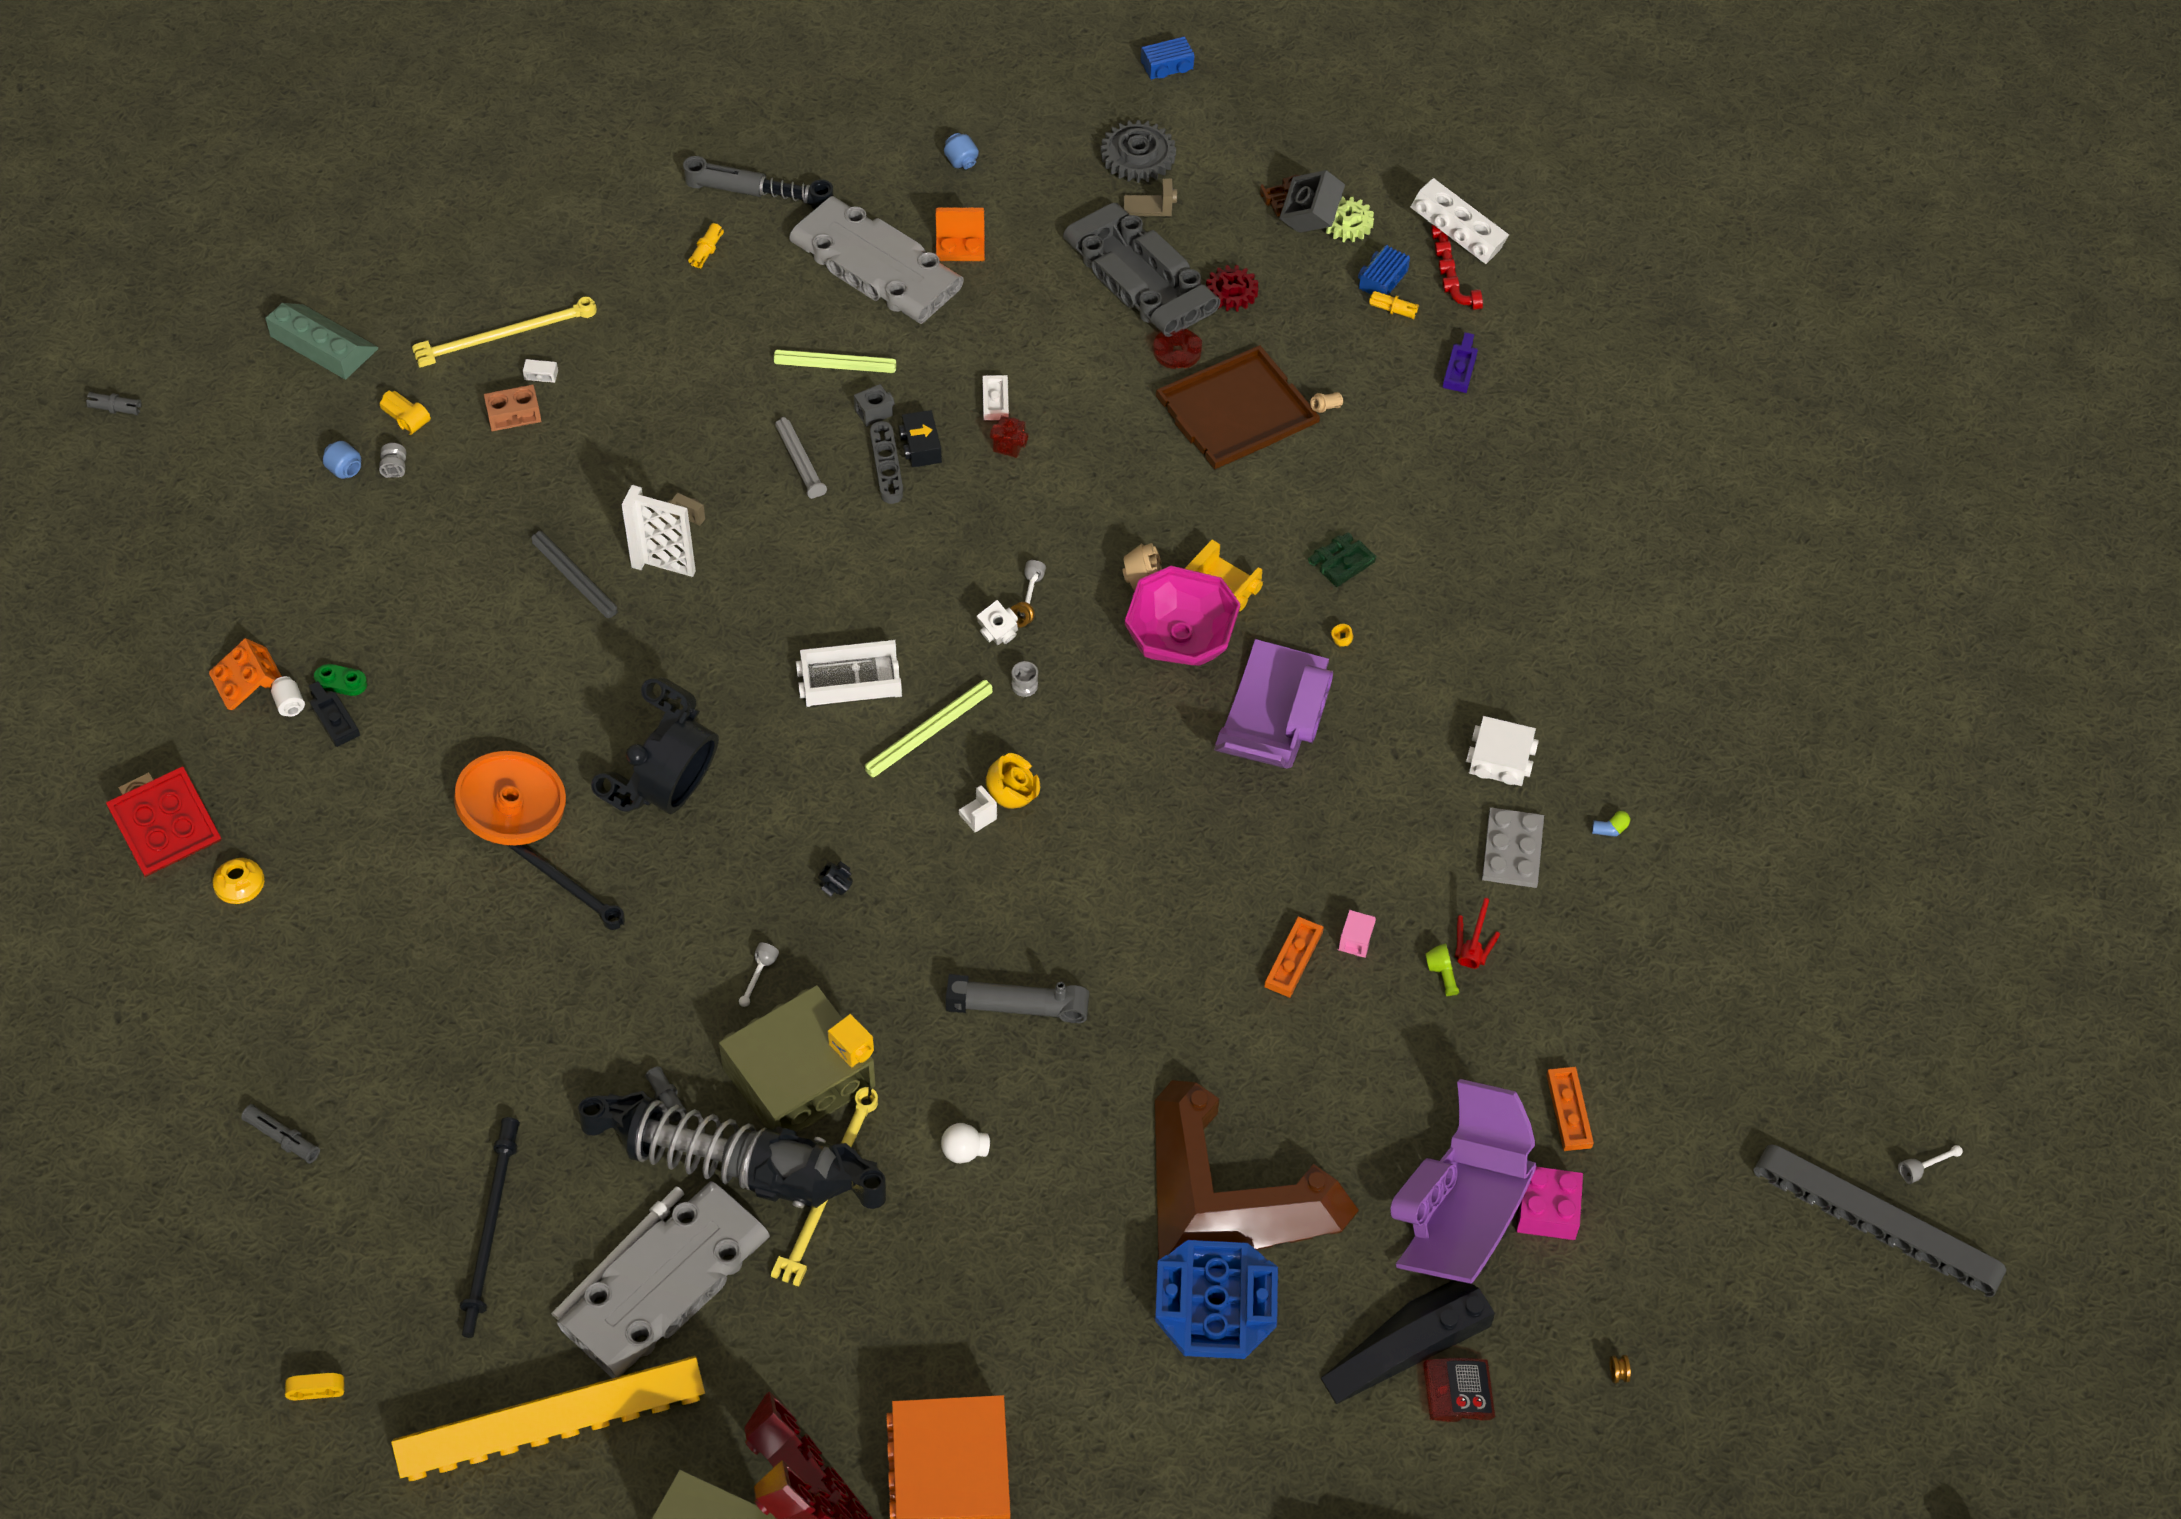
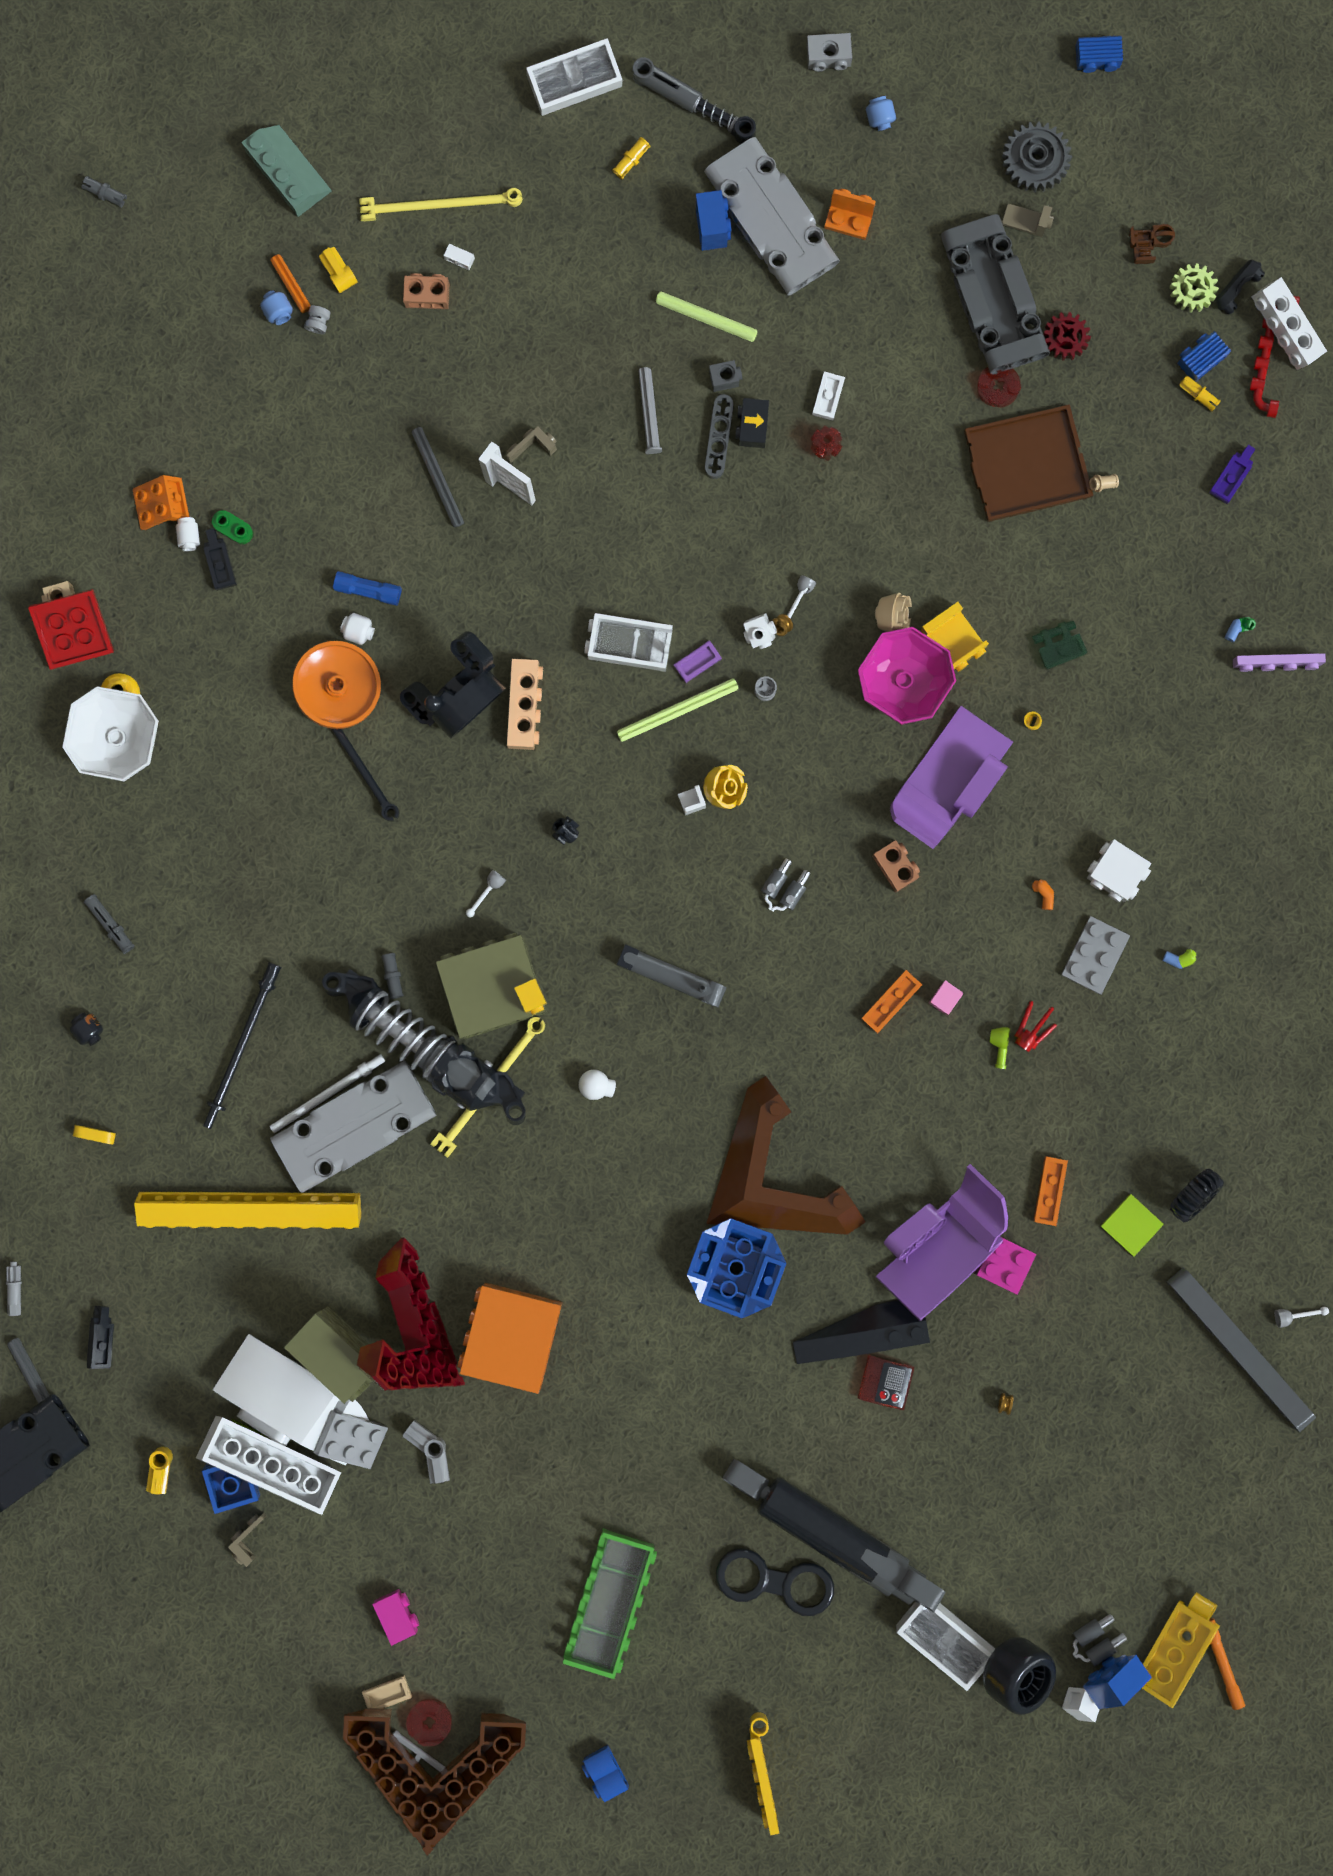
camera: 25 degrees right, 30 degrees up
(239, 910) = (110, 734): none -> white rock
(276, 1262) = (86, 1029): none -> black head
(352, 437) = (290, 283): none -> orange axle
(520, 737) = (357, 628): none -> white head
(541, 697) = (354, 585): none -> blue axle
(622, 190) = (574, 77): none -> brick
(735, 730) = (520, 670): none -> light nougat brick
(813, 271) = (713, 220): none -> blue brick
(887, 114) = (837, 43): none -> light grey brick
(936, 676) = (697, 661): none -> medium lavender tile
(1108, 868) = (793, 892): none -> dark grey piece
(1241, 818) = (891, 869): none -> nougat brick
(1312, 201) = (1166, 268): dark grey brick -> none
(1385, 219) = (1249, 271): none -> black piece
(1430, 798) = (1046, 891): none -> orange arm
(1531, 494) = (1239, 625): none -> arm
(1587, 512) = (1288, 662): none -> lavender plate
(1684, 1120) = (1132, 1225): none -> lime tile
(1745, 1053) = (1196, 1195): none -> black gear

